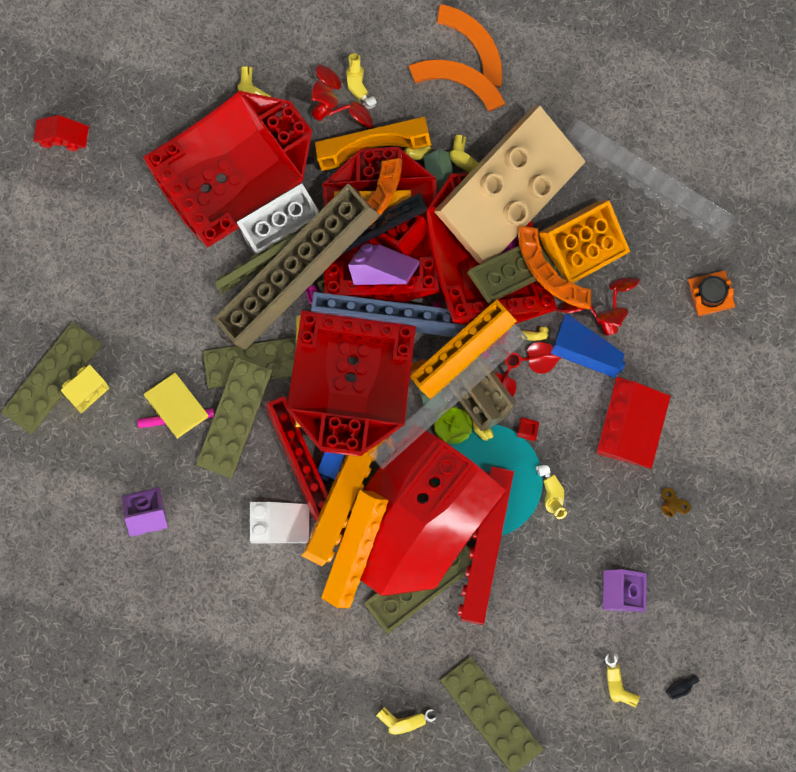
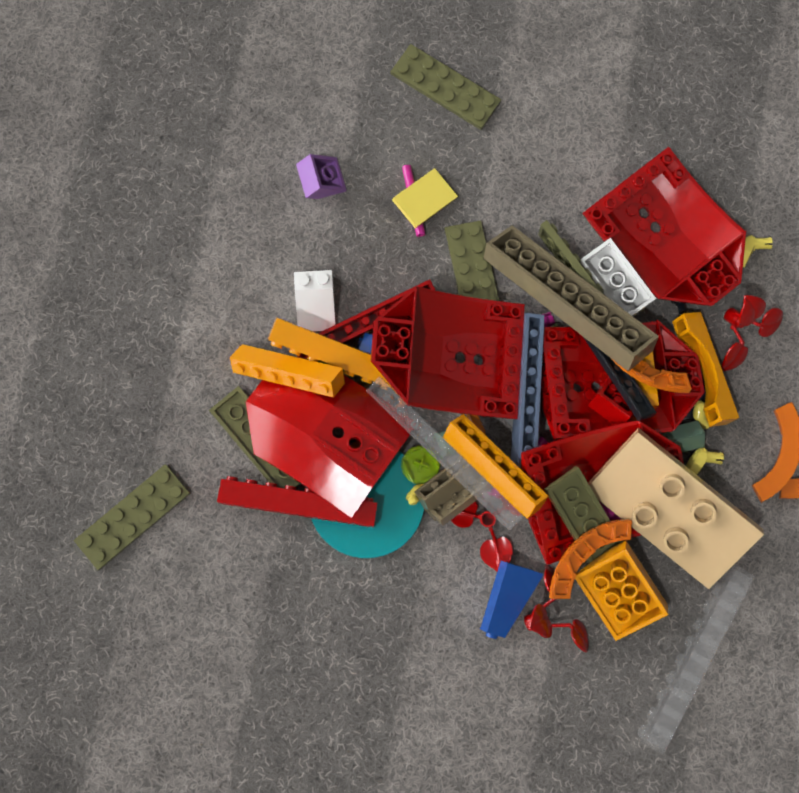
camera: 85 degrees right, 0 degrees up
(61, 132) = (686, 70): red brick -> none
(84, 388) = (435, 111): light yellow brick -> none
(234, 418) = (416, 253): olive plate -> none
(354, 81) = (769, 349): light yellow arm -> none
(381, 266) = (575, 379): medium lavender slope -> none
(403, 725) = (120, 430): light yellow arm -> none
(528, 429) = (421, 540): red tile -> none
(542, 334) = (518, 544): light yellow arm -> none
(555, 492) = (355, 571): light yellow arm -> none
(616, 686) = (162, 641): light yellow arm -> none
(624, 590) = (257, 647): medium lavender slope -> none
(633, 423) = (433, 650): red slope -> none
(673, 504) = (351, 696): pearl gold piece -> none
(681, 687) = (161, 710): black piece -> none
(712, 291) = (578, 730): piece -> none

